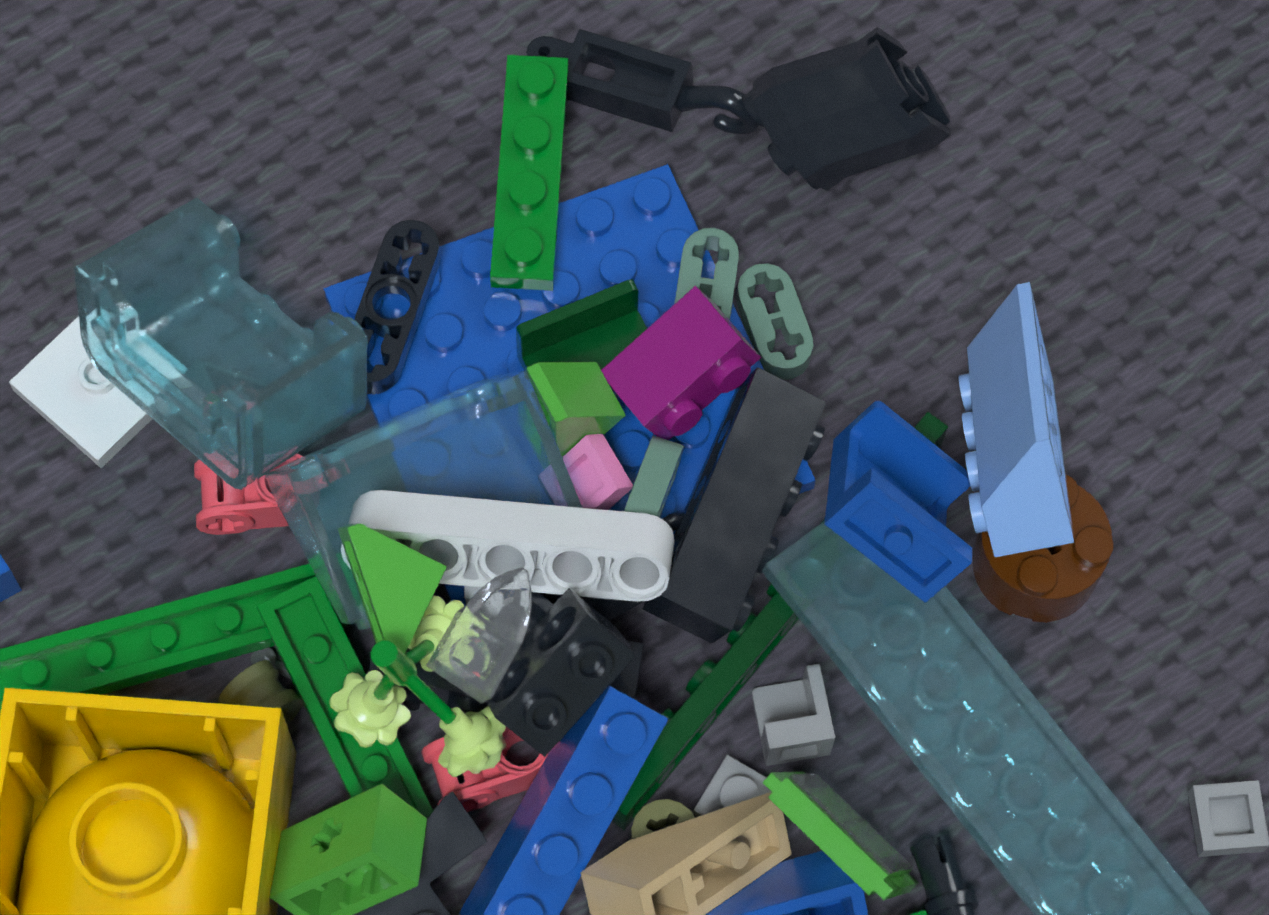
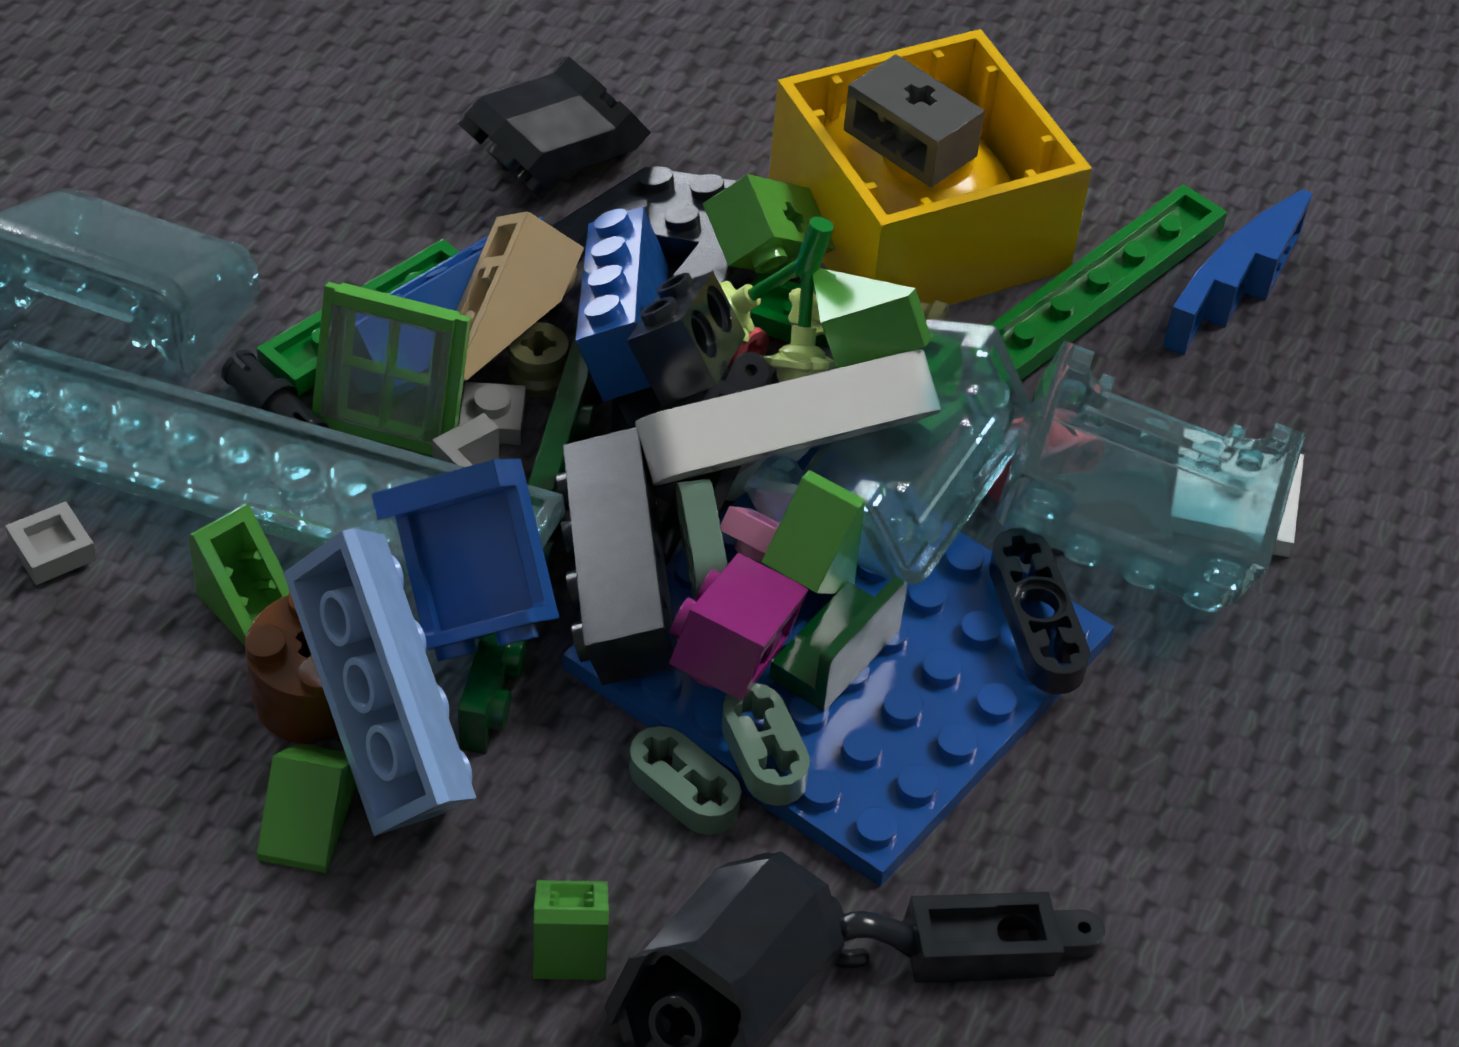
camera: 150 degrees right, 20 degrees down
(178, 854) = (913, 120): none -> dark grey brick
(485, 635) = (761, 328): clear plate -> none
(529, 173) = (1008, 781): green plate -> none
(935, 227) = (570, 930): none -> bright green slope
(1069, 676) = (236, 569): none -> bright green slope
(1098, 433) = (305, 806): none -> bright green slope

